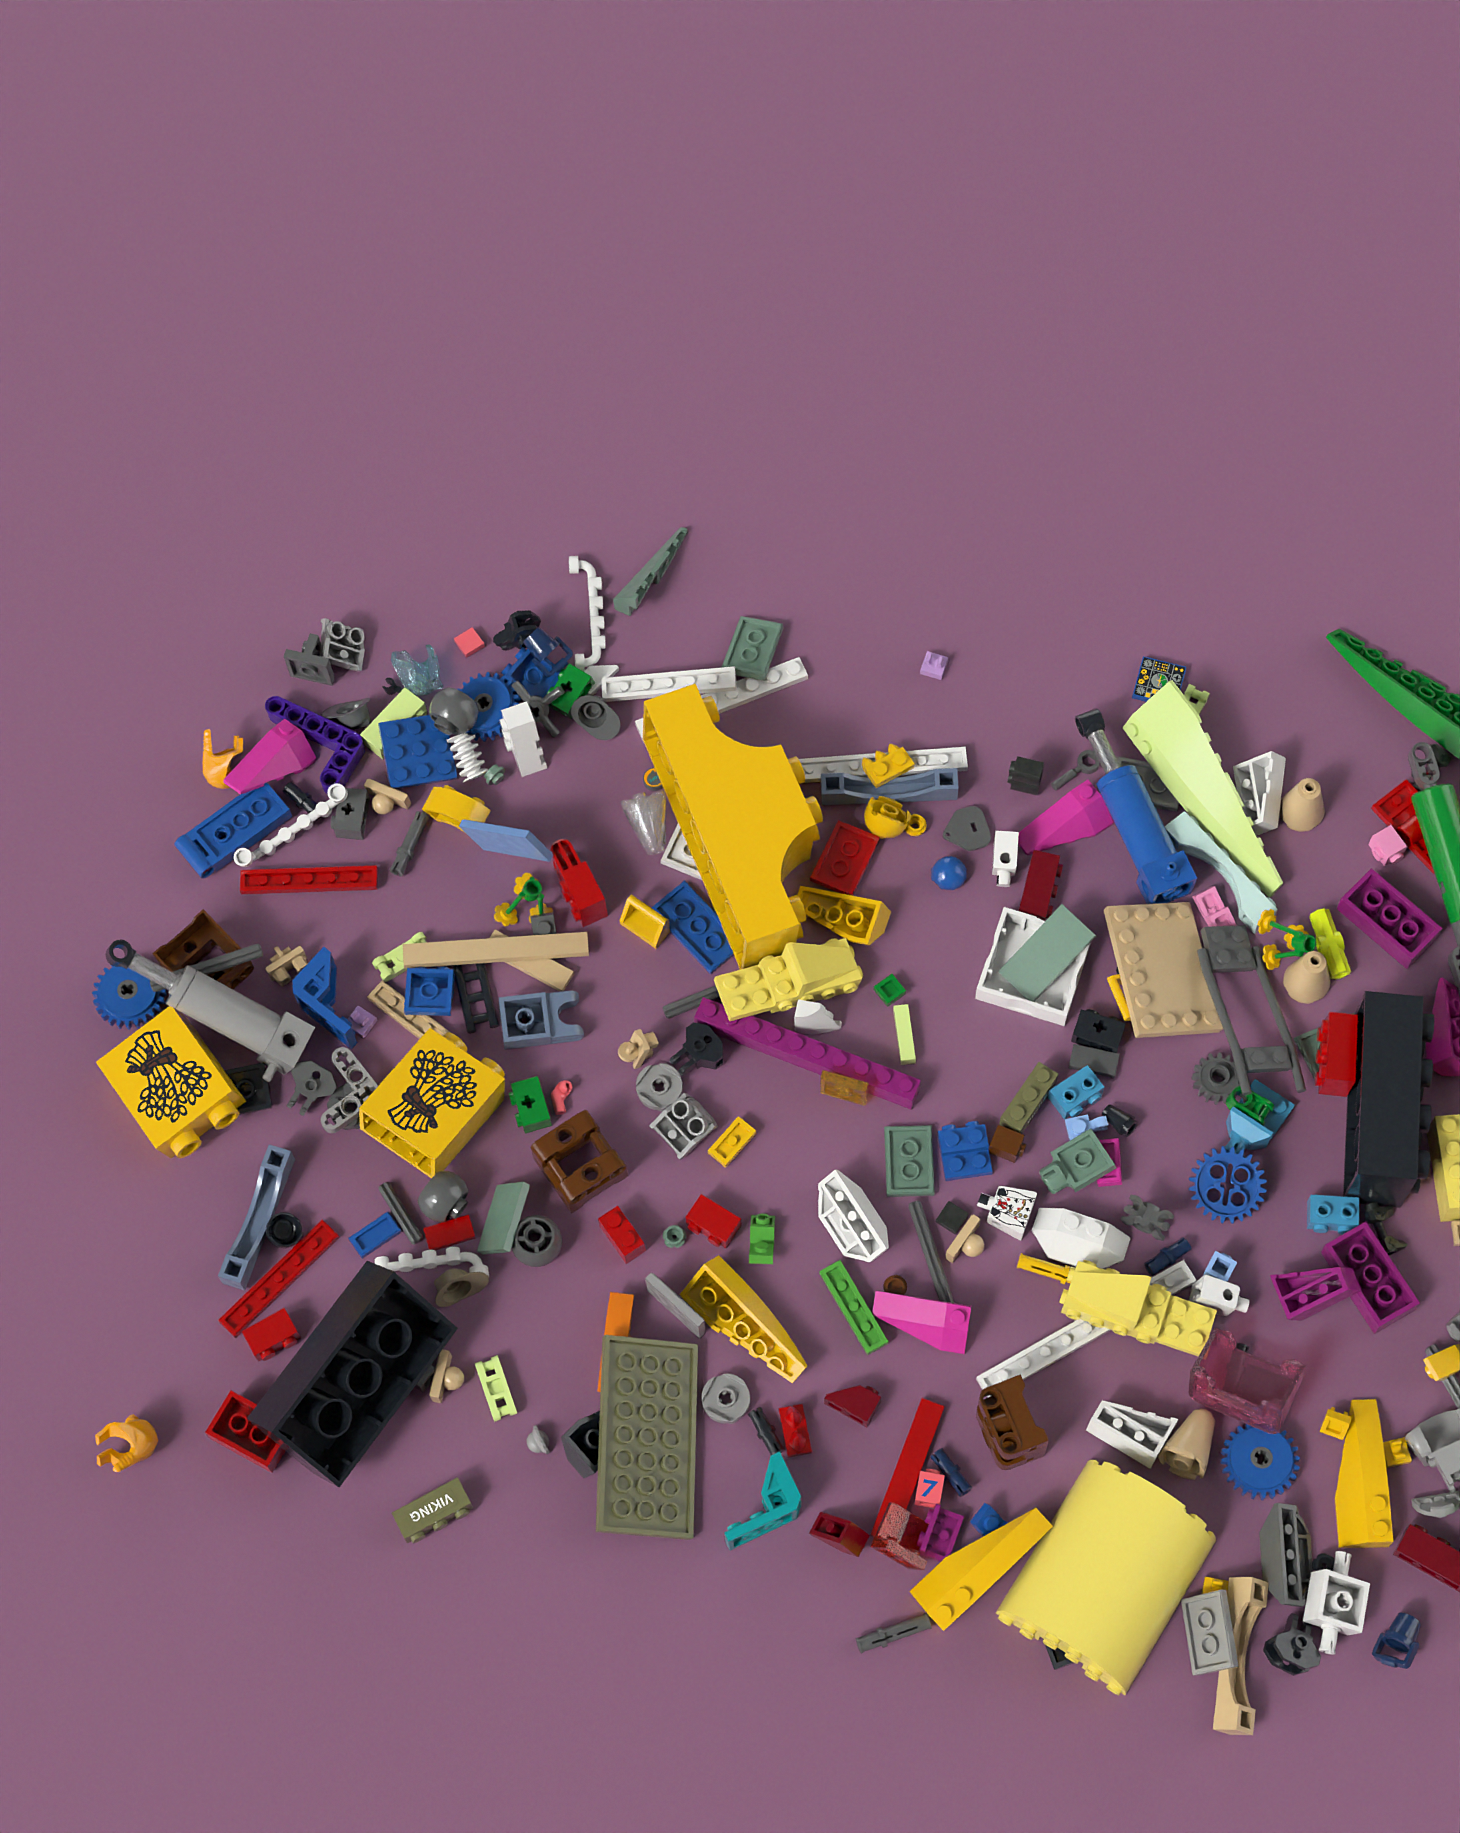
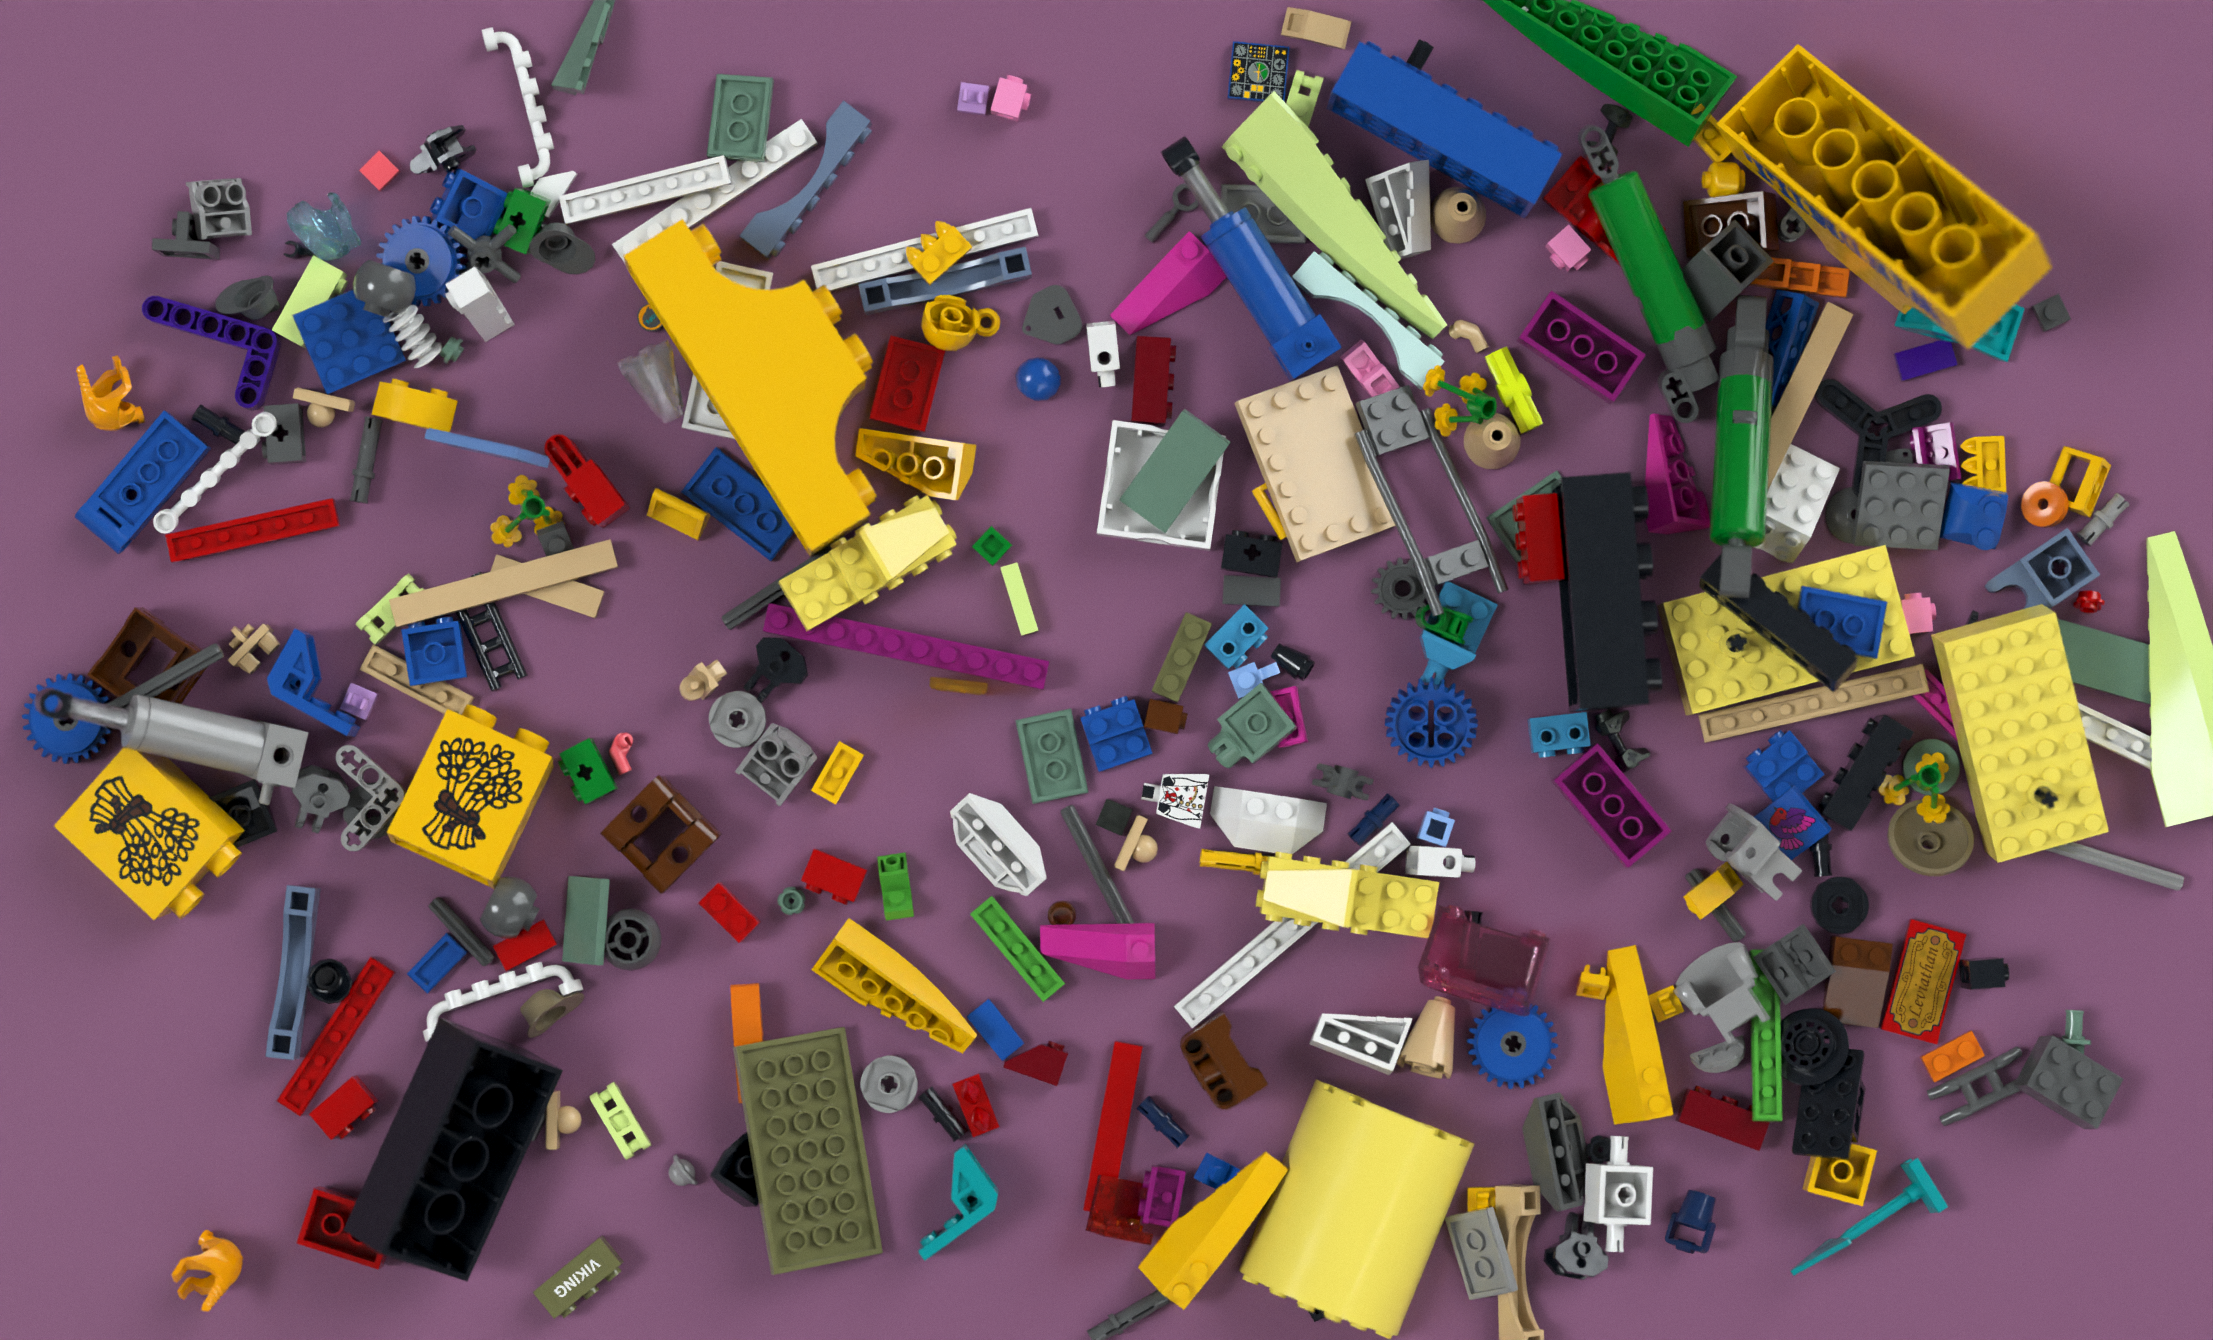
camera: 15 degrees left, 20 degrees up
(273, 757) = (173, 379): dark pink wedge -> none
(541, 645) = (477, 175): dark blue piece -> none
(543, 1024) = (582, 663): sand blue brick -> none
(675, 1305) = (810, 989): light grey tile -> none
(762, 727) = (771, 227): none -> sand blue arch
(814, 1019) = (908, 604): white slope -> none
(823, 1370) = (995, 1029): none -> blue tile
(839, 1534) = (1047, 1217): dark red slope -> none
(929, 1488) = (1141, 1146): coral brick -> none
(963, 668) = (1010, 98): none -> bright pink brick
(1025, 775) = (1111, 237): pearl dark grey brick -> none
(1214, 657) = (1316, 27): none -> tan slope
(1299, 894) = (1469, 331): none -> tan arm
(1314, 1290) = (1546, 835): magenta wedge -> none
(1319, 742) = (1436, 125): none -> blue piece

